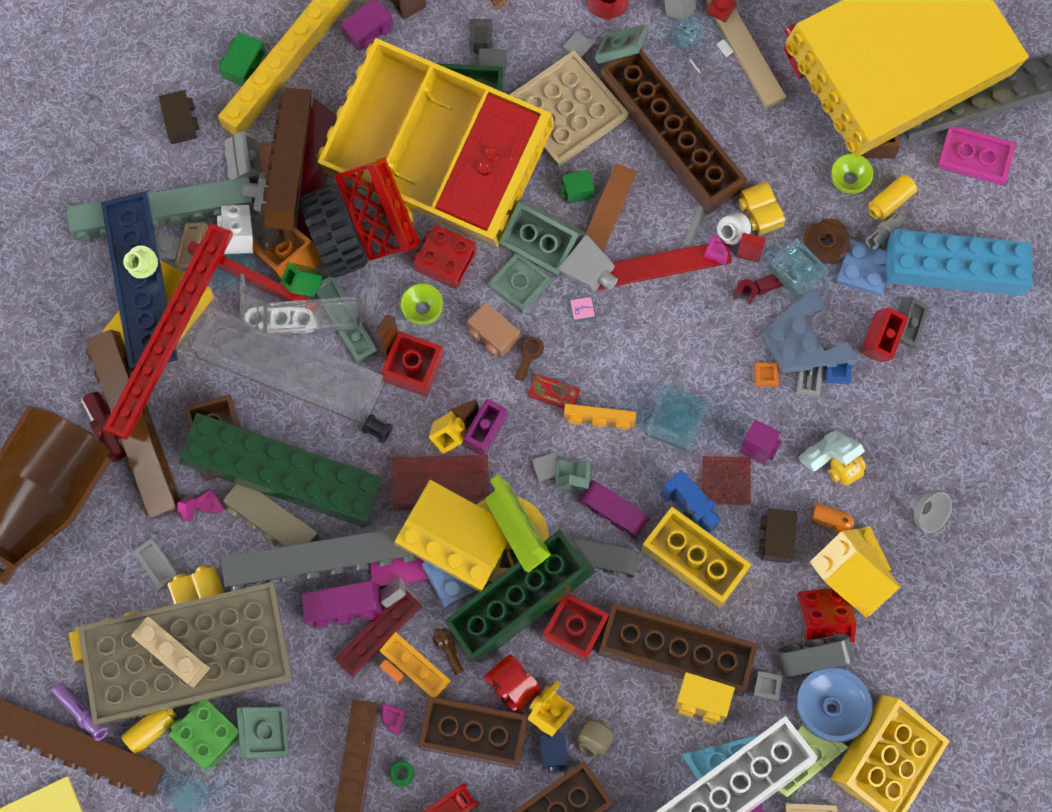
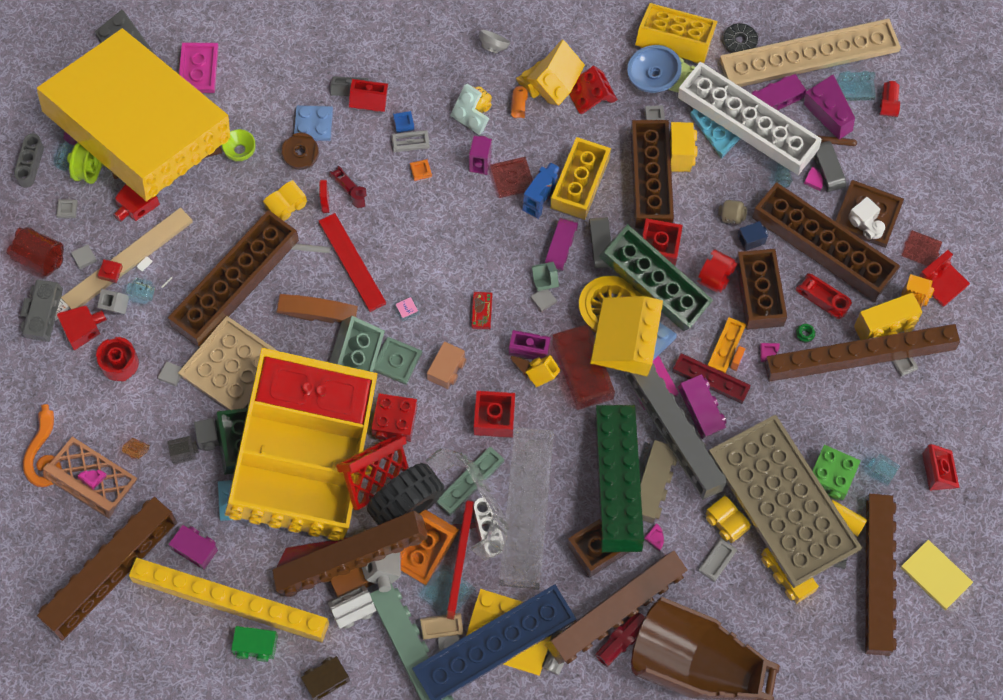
camera: 110 degrees left, 5 degrees down
(78, 711) = (852, 572): medium lavender pin -> none
(141, 262) = (481, 641): yellowish green piece -> none
(168, 332) = (536, 592): red plate -> none
(170, 651) = (791, 501): tan brick -> none
(186, 507) = (667, 547): dark pink tile -> none
(238, 220) = (420, 587): white brick -> none
(262, 732) = (816, 432): sand green tile -> none
(265, 236) = (415, 559): clear smoke brick -> none
(301, 279) = (452, 516): green brick -> none
(377, 428) = (555, 424): black bush -> none
(386, 335) = (482, 431): reddish brown tile -> none
(393, 592) = (679, 373): light grey tile -> none
(418, 294) = (437, 415): lime piece -> none
(444, 641) = (701, 331): reddish brown plate -> none
(516, 525) = (607, 288): lime panel -> none
(532, 349) = (452, 336): reddish brown plate -> none
(550, 710) = (726, 241): yellow bracket -> none
(577, 187) = (303, 337): green brick -> none
(589, 266) = (373, 306): light grey torso -> none
(599, 416) = (493, 271): light orange plate -> none
(621, 44) = (167, 333): sand green tile -> none
(677, 418) = (478, 216): clear light blue brick -> none
(716, 250) = (330, 224): dark pink tile -> none
(732, 227) = (309, 215): white head -> none
(779, 535) = (544, 131): dark brown brick -> none
(795, 343) = (389, 155): sand blue wing -> none
(798, 268) = (331, 162): clear light blue plate -> none
(815, 654) = (623, 88): dark grey beam -> none
(884, 230) = (281, 113): light grey pin -> none
(892, 197) = (250, 115): yellow brick -> none
(959, 262) = (296, 58): dark azure brick -> none

